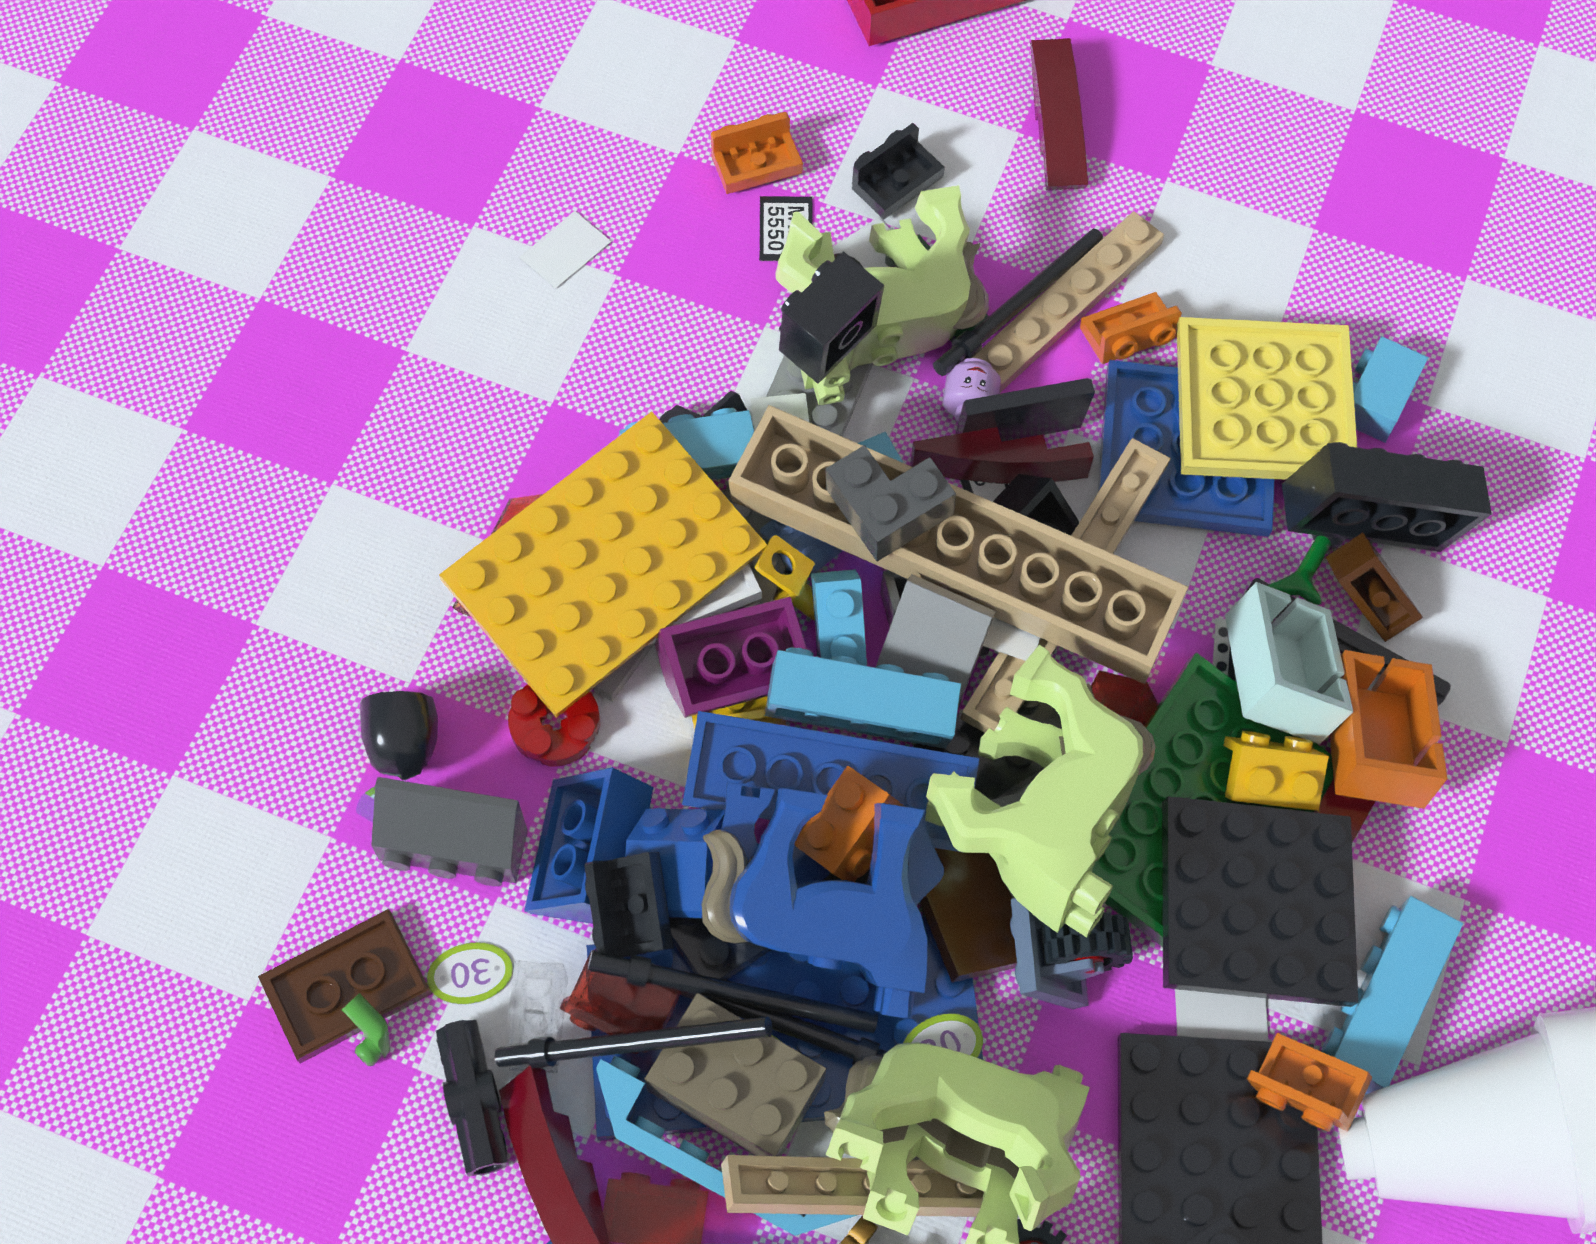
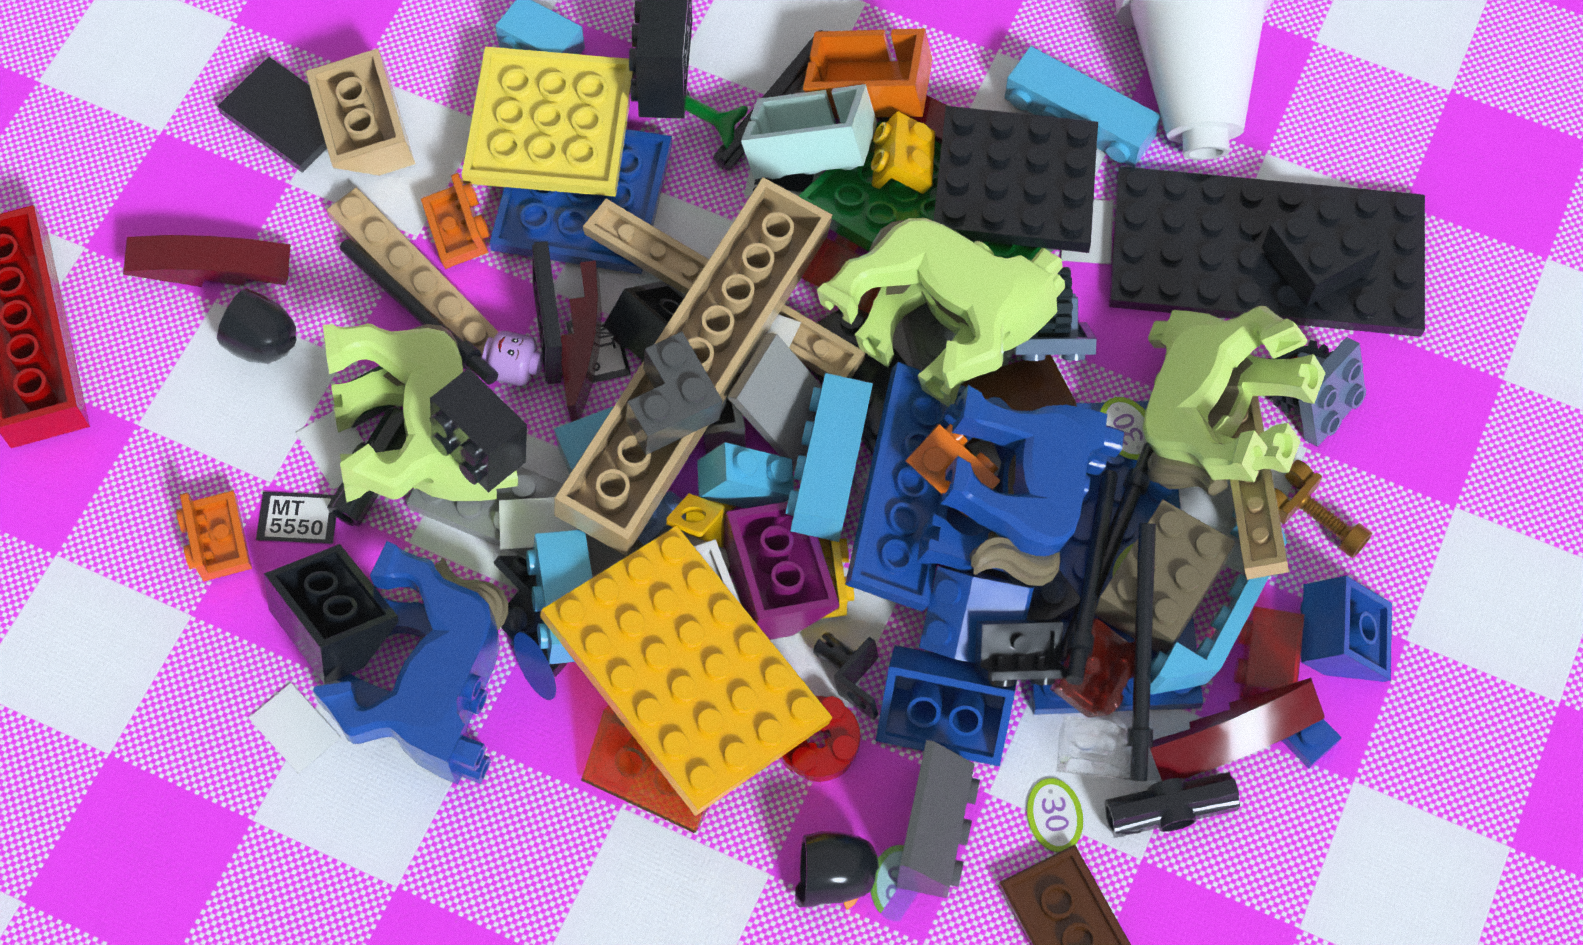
camera: 85 degrees left, 0 degrees up
(373, 1027) = (1115, 890): bright green arm -> none
(600, 357) = (440, 678): none -> blue piece
(631, 747) = (850, 667): none -> black bracket
(666, 246) = (330, 611): none -> black slope
(895, 172) = (258, 407): black bracket -> none
(981, 158) = (256, 328): none -> black piece
(1246, 165) = (278, 113): none -> black tile
(1246, 223) = (360, 115): none -> tan slope
(1311, 1082) = (1161, 160): orange bracket -> none
(1373, 587) = (731, 69): reddish brown slope -> none

